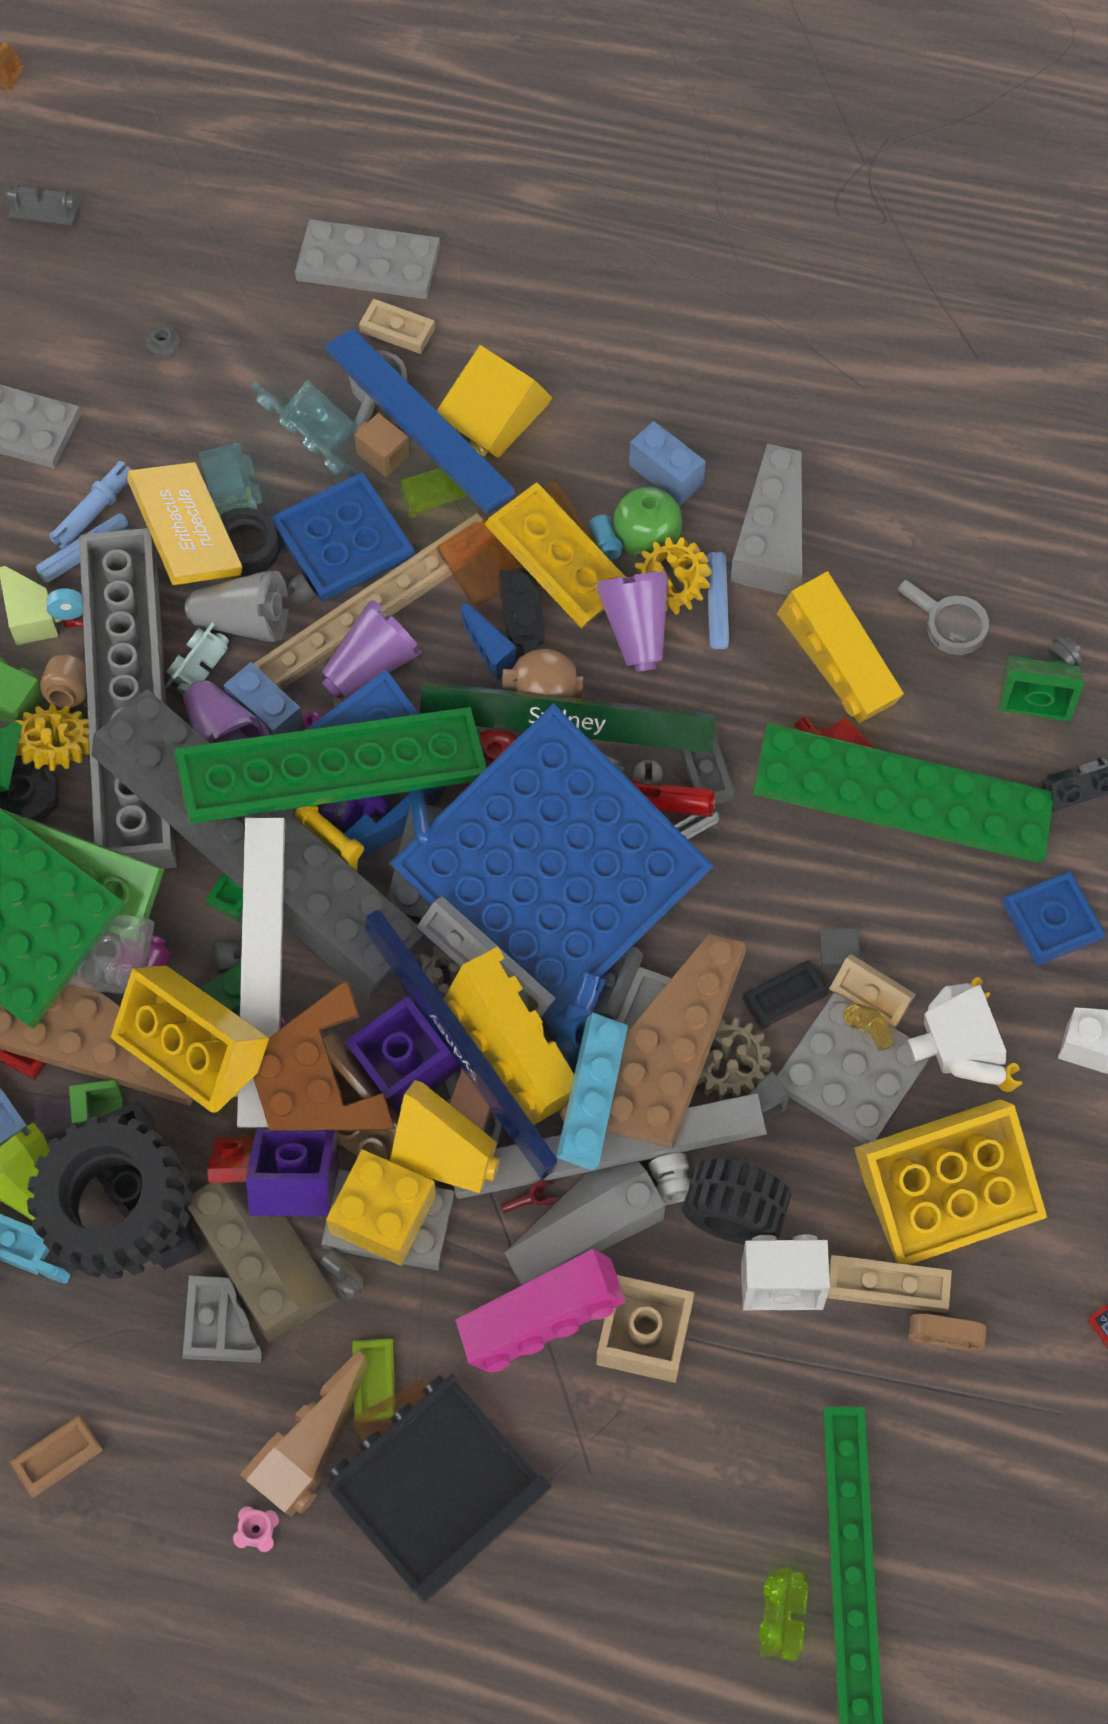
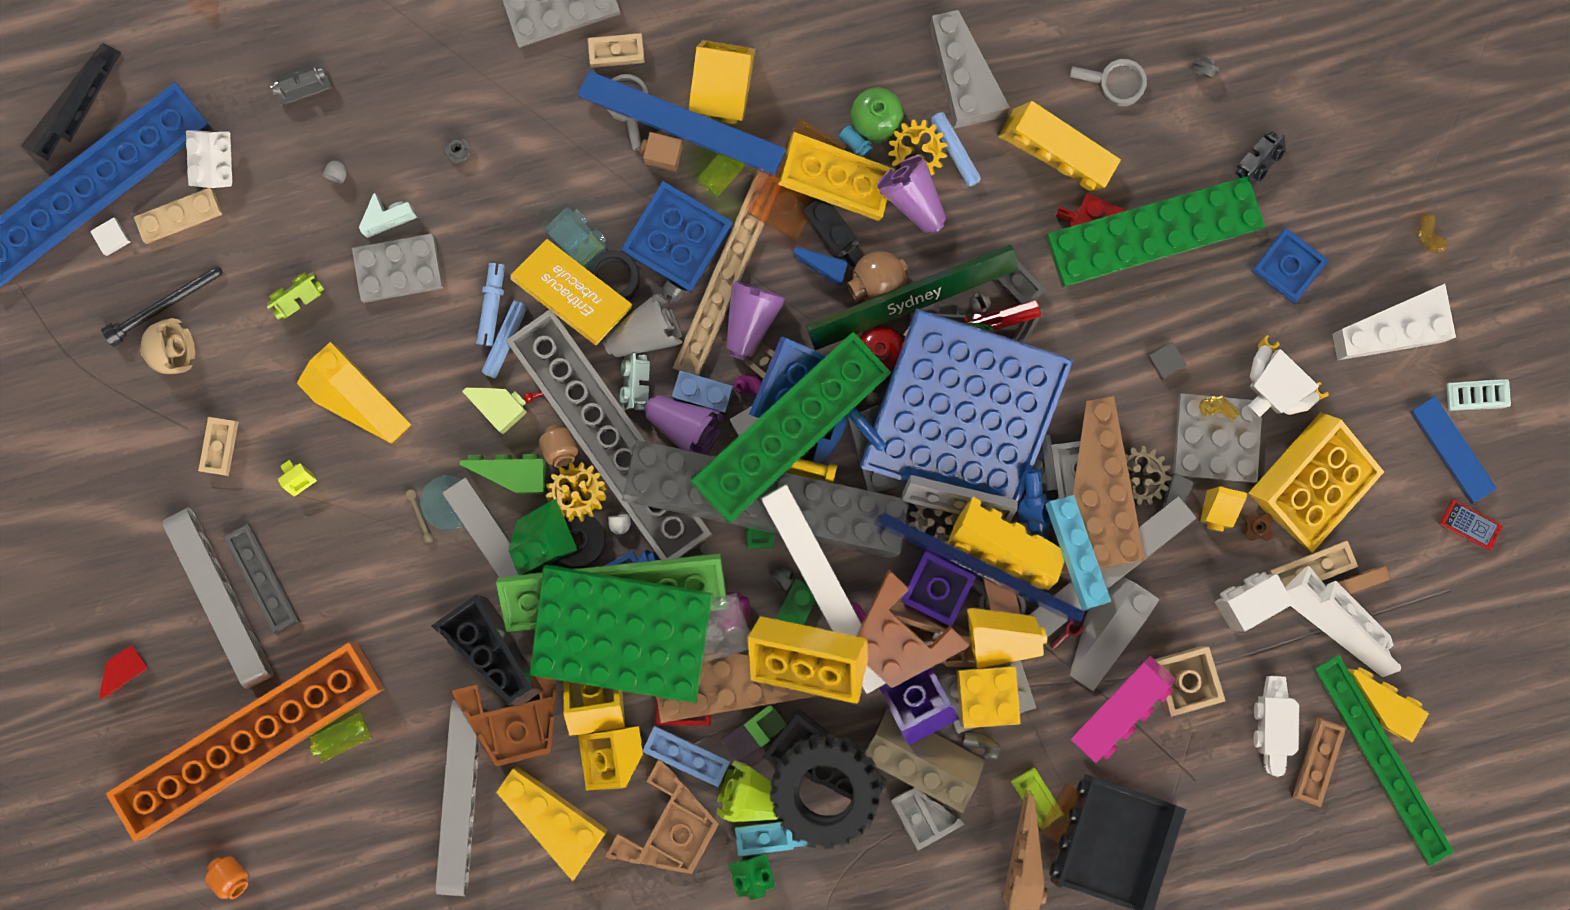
camera: 30 degrees left, 20 degrees up
(19, 301) = (335, 171): none -> light grey hinge
(35, 366) = (378, 219): none -> light aqua slope
(64, 604) = (528, 395): medium azure tile -> none
(78, 798) = (619, 523): none -> white hinge
(230, 1159) = (874, 715): red plate -> none
(316, 418) = (605, 157): clear light blue bracket -> none
(667, 462) = (866, 63): medium blue brick -> none
(671, 1176) = (1153, 576): white wheel -> none
(734, 1453) = (1277, 725): none -> white hinge
(735, 1200) = (1202, 573): black tyre -> none
(765, 1536) = (1319, 762): none -> medium nougat tile
(783, 1594) = (1357, 815): clear neon green hinge -> none
(785, 994) = (1149, 410): black tile -> none
(809, 1142) = (1222, 508): none -> yellow slope
(851, 1209) = (1251, 527): none -> reddish brown plate
(871, 988) = (1205, 381): tan plate -> none
(892, 1365) = (1343, 620): none -> white wedge
(897, 1516) = (1393, 712): none -> yellow slope
(1040, 688) = (1204, 103): green slope -> none

